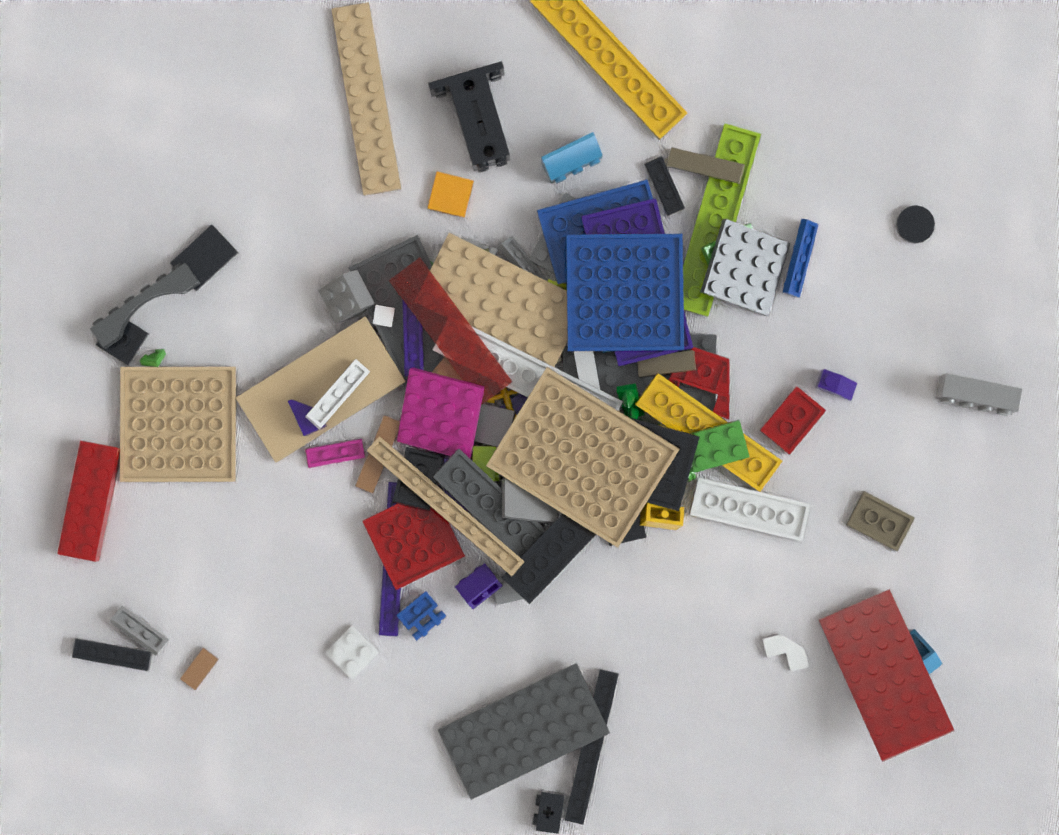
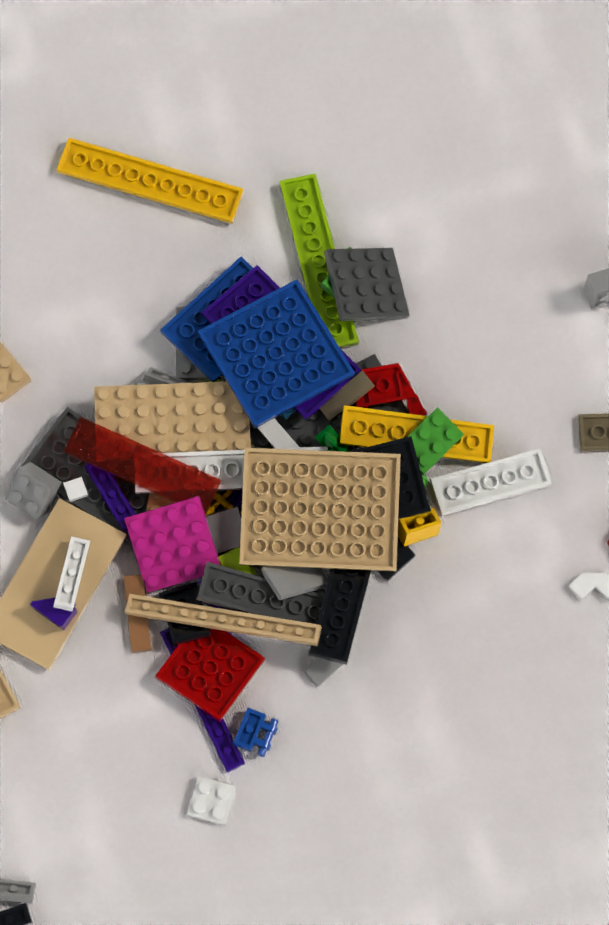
camera: 30 degrees left, 15 degrees down
(199, 669) = (79, 894): medium nougat tile -> none
(335, 453) = (97, 634): dark pink tile -> none
(450, 194) = (77, 361): light orange tile -> none
(477, 114) = (62, 280): black brick -> none
(478, 586) = (292, 676): dark purple brick -> none
(523, 731) = (406, 783): dark grey plate -> none
(552, 822) = (480, 849): black brick -> none
(572, 158) = (165, 274): dark azure slope -> none
(591, 752) = (475, 764): black plate -> none
(664, 186) = (256, 256): black tile -> none
(705, 165) = (283, 221): dark tan tile -> none
(792, 420) = (482, 388): red plate -> none
(800, 258) = (408, 254): blue plate -> none
(836, 384) = (500, 339): dark purple slope -> none
(915, 224) = (487, 178): black tile -> none

